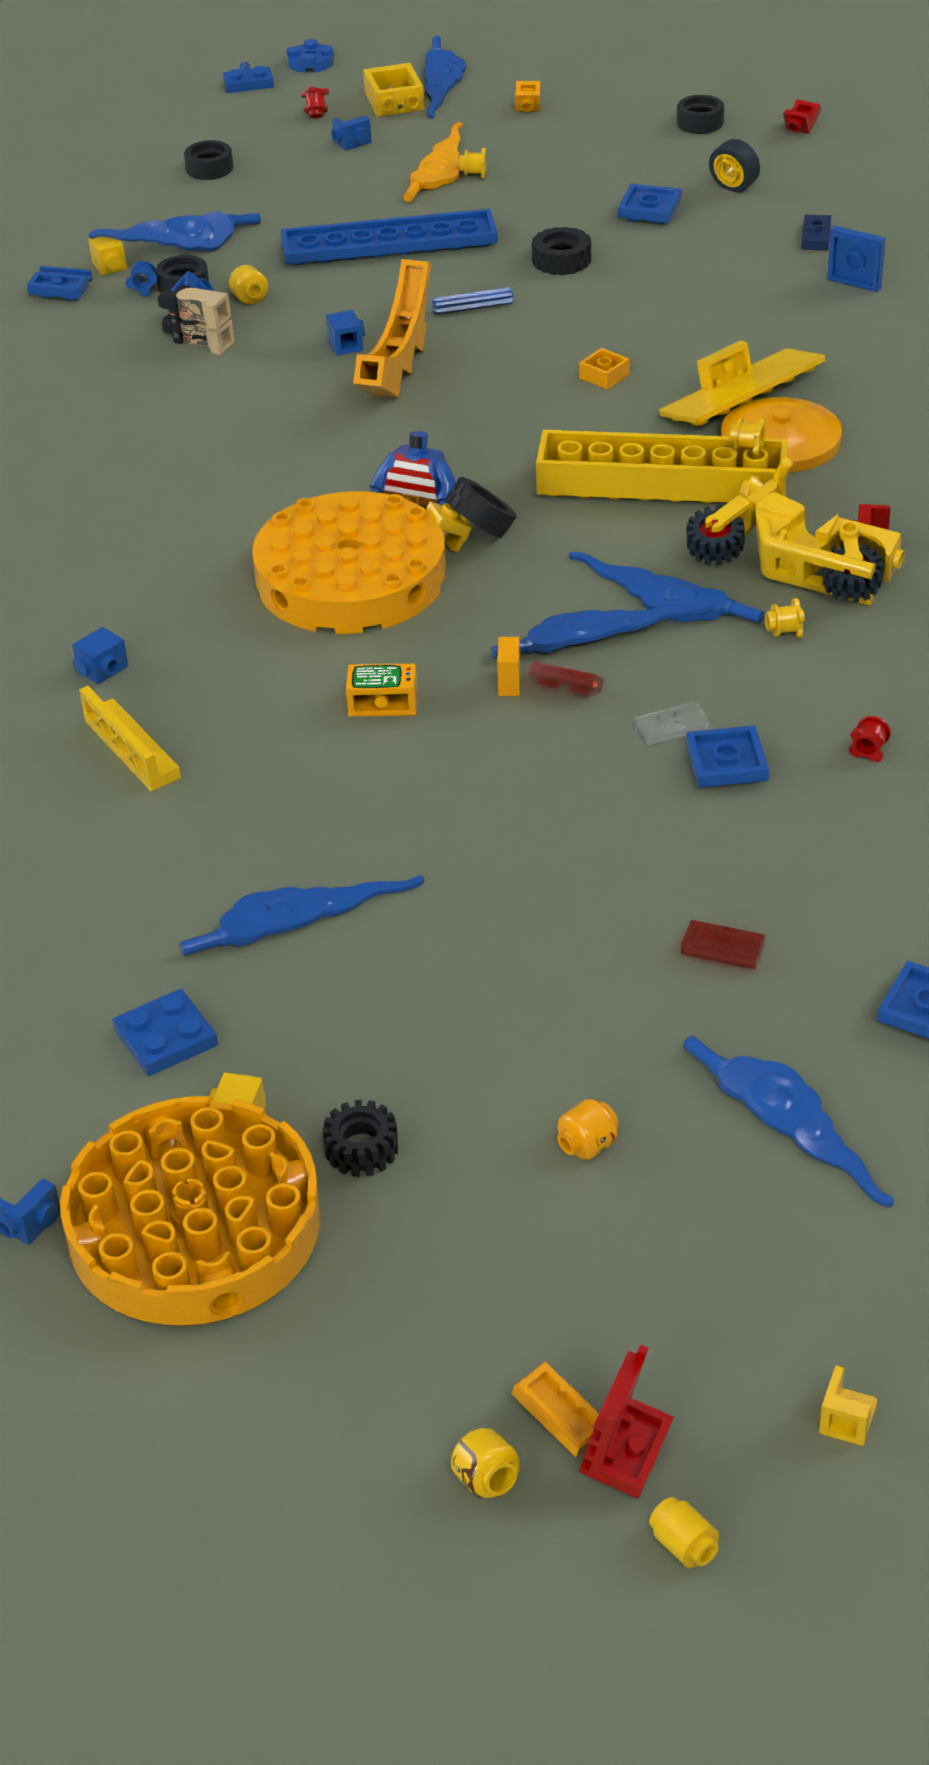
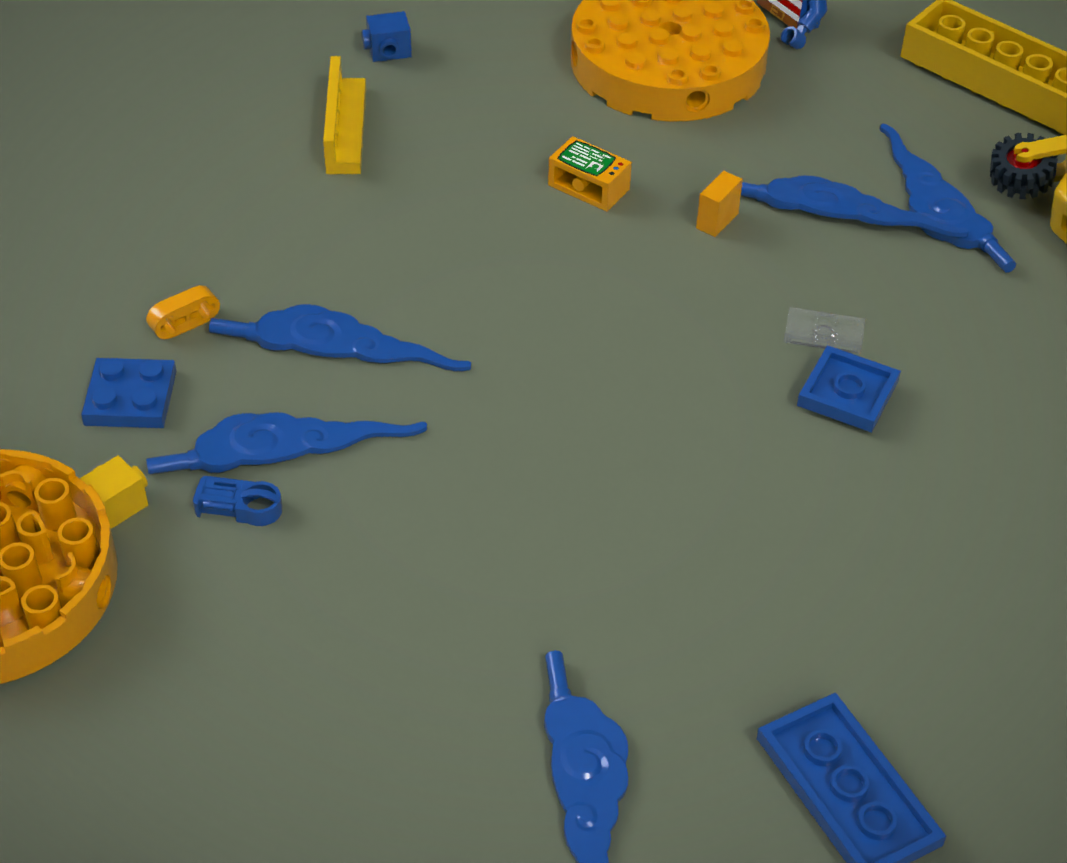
camera: 30 degrees right, 5 degrees up
(150, 949) = (183, 312): none -> light orange beam
(321, 1006) = (273, 439): none -> blue piece
(335, 1062) = (231, 499): none -> blue piece
(360, 1155) = (188, 599): black tyre -> none
(454, 526) = (787, 46): yellow bracket -> none
(481, 507) = (824, 44): black tyre -> none
(579, 681) = (754, 232): clear red plate -> none
(587, 1129) = (377, 689): light orange head -> none
(723, 944) = (674, 575): clear red plate -> none
(785, 619) = (1028, 279): yellow brick -> none
(869, 738) = (1008, 440): red brick -> none

